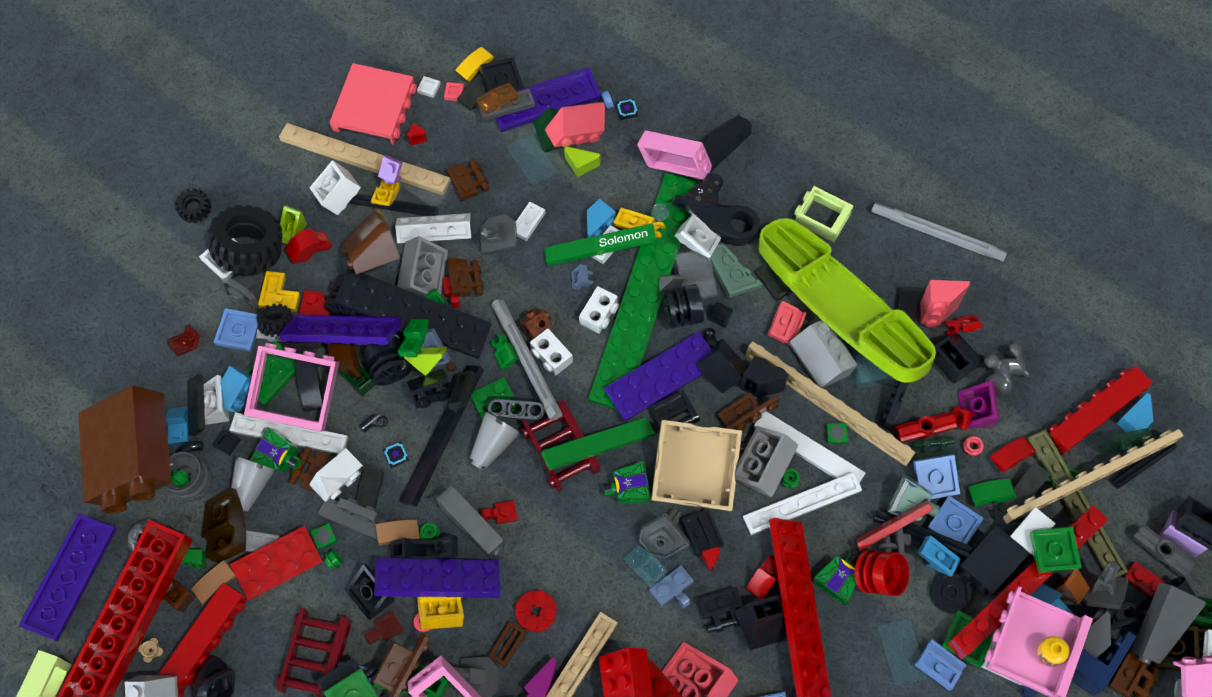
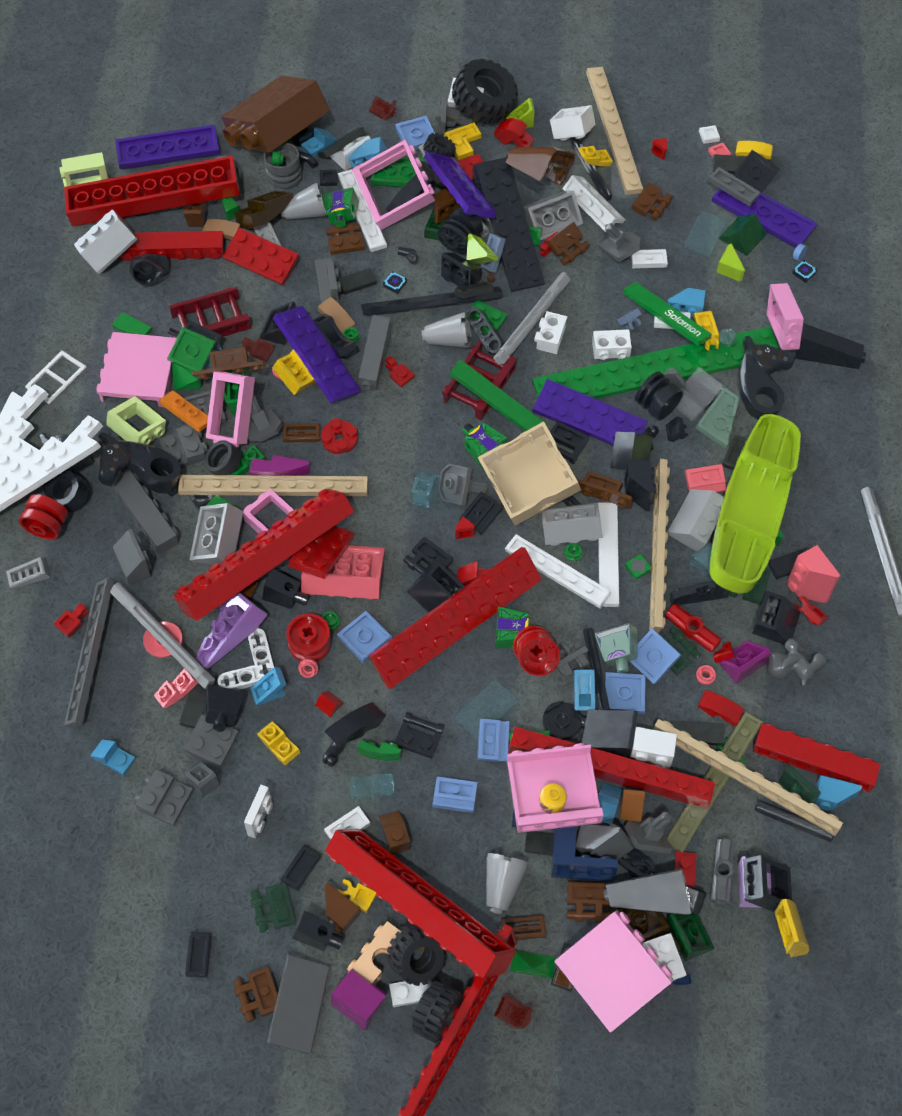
camera: 55 degrees right, 5 degrees down
(146, 646) = (149, 222): tan plate -> none
(187, 198) = (490, 45): black tyre -> none
(323, 536) = (300, 274): green tile -> none
(333, 560) = (287, 289): green plate -> none
(335, 475) = (347, 248): white slope -> none
(373, 102) = (664, 106): coral panel -> none
(390, 170) = (613, 144): bracket -> none
(415, 336) = (490, 230): green slope -> none
(496, 97) = (728, 172): clear orange slope -> none
(505, 352) = (526, 304): green plate -> none
(535, 322) = (569, 301): copper brick -> none
(577, 125) = (754, 237): coral slope -> none
(673, 587) = (422, 517): sand blue plate -> none
(697, 236) = (727, 371): white slope -> none
(829, 201) = (827, 471): yellowish green window -> none
(894, 524) = (584, 640): tile -> none
(994, 490) = (675, 707): green slope -> none
(1055, 550) = (647, 764): green plate -> none

